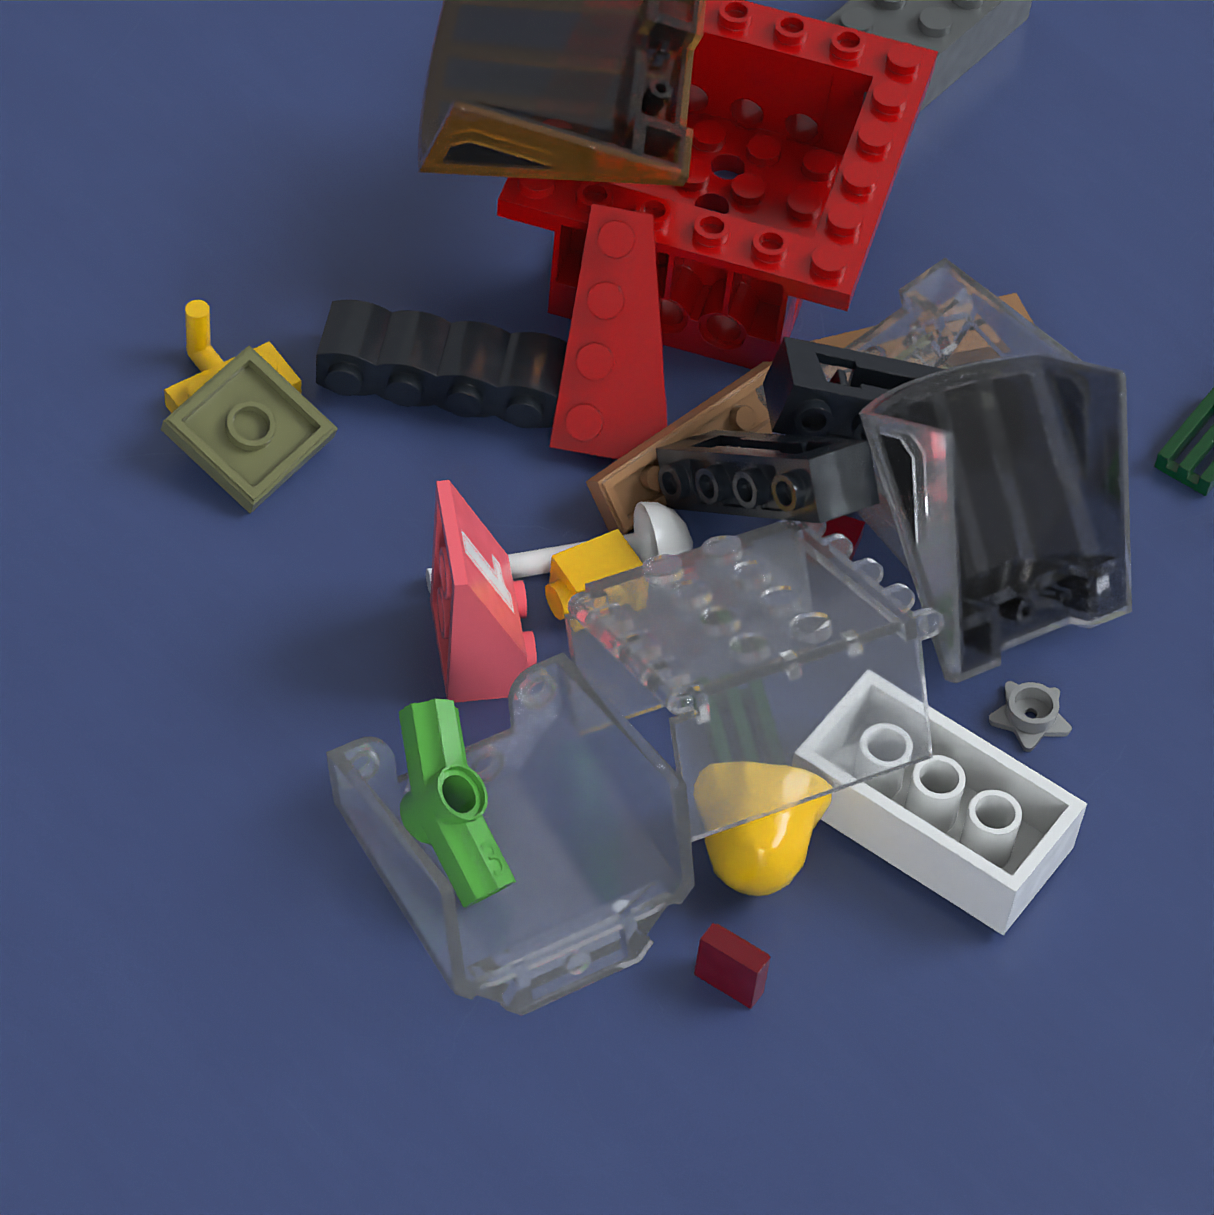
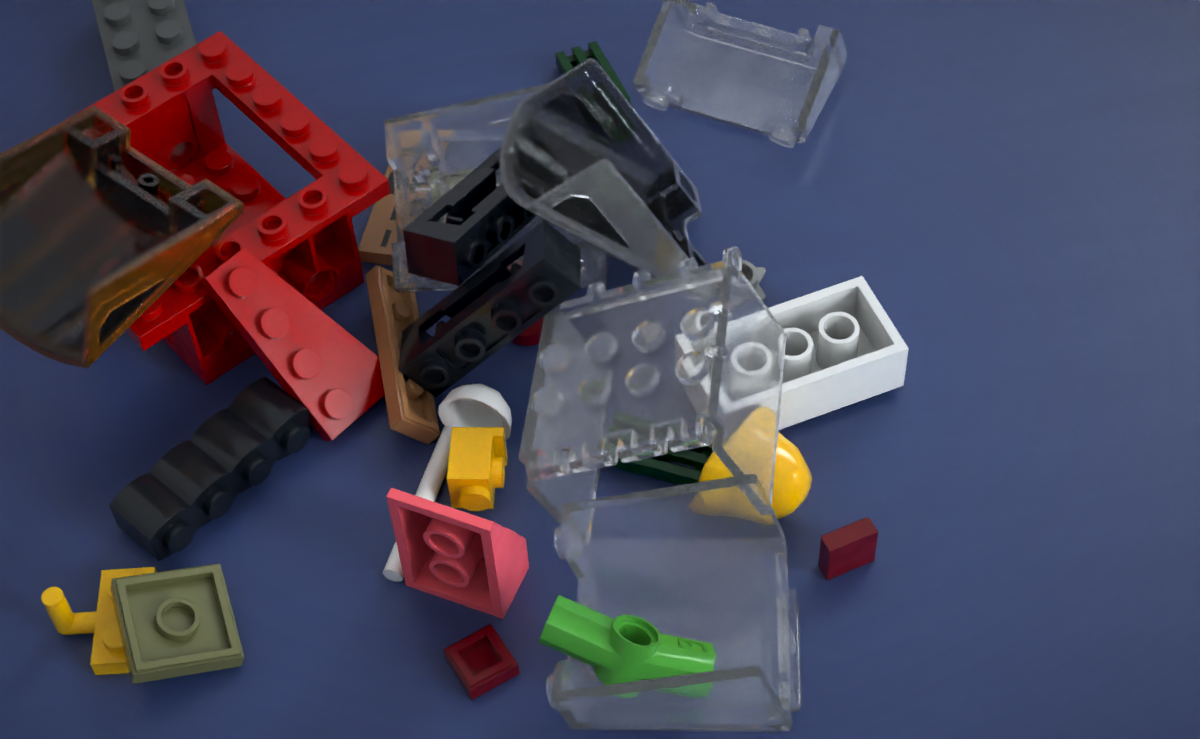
camera: 50 degrees left, 0 degrees up
(375, 703) = (481, 661): none -> dark red tile

